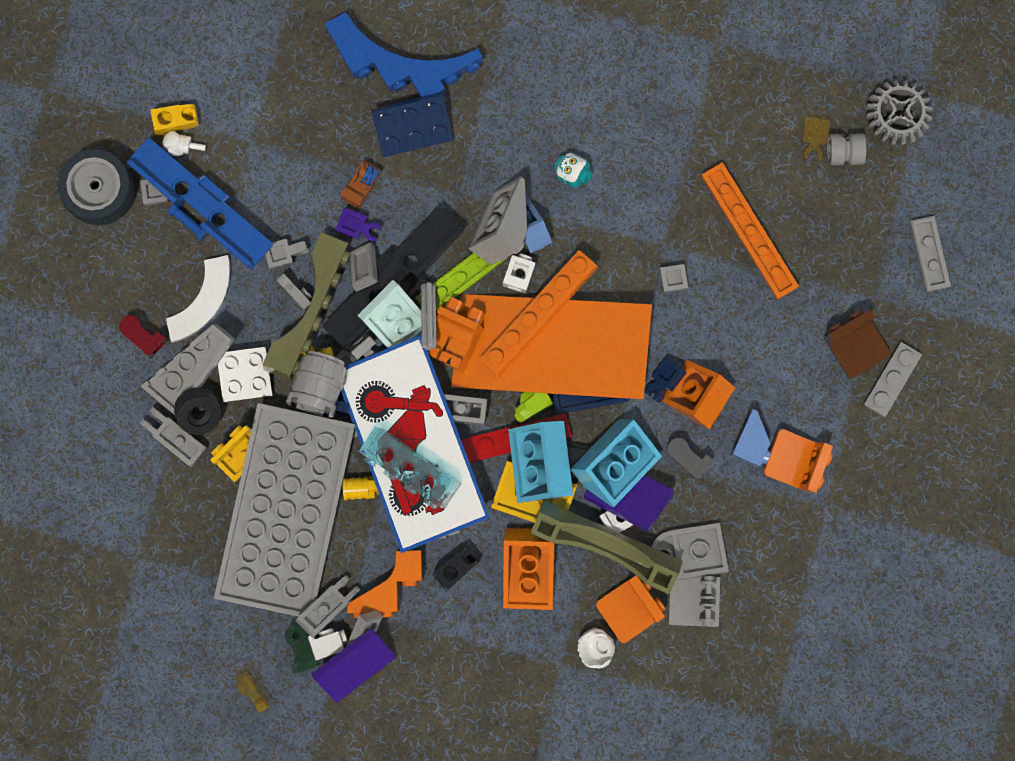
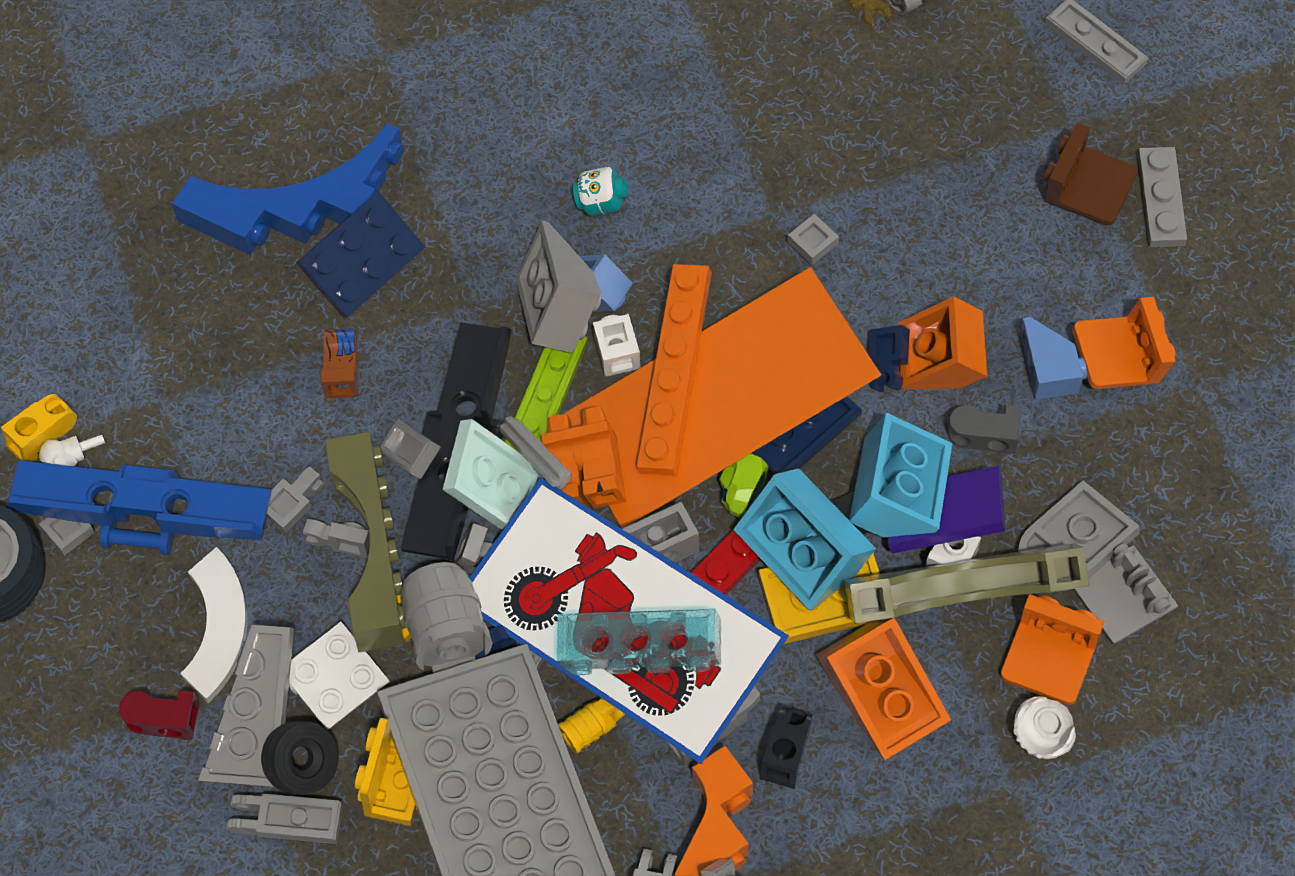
camera: 30 degrees left, 20 degrees down
(354, 224) = (361, 412): dark purple plate -> none
(749, 231) = (866, 136): orange plate -> none

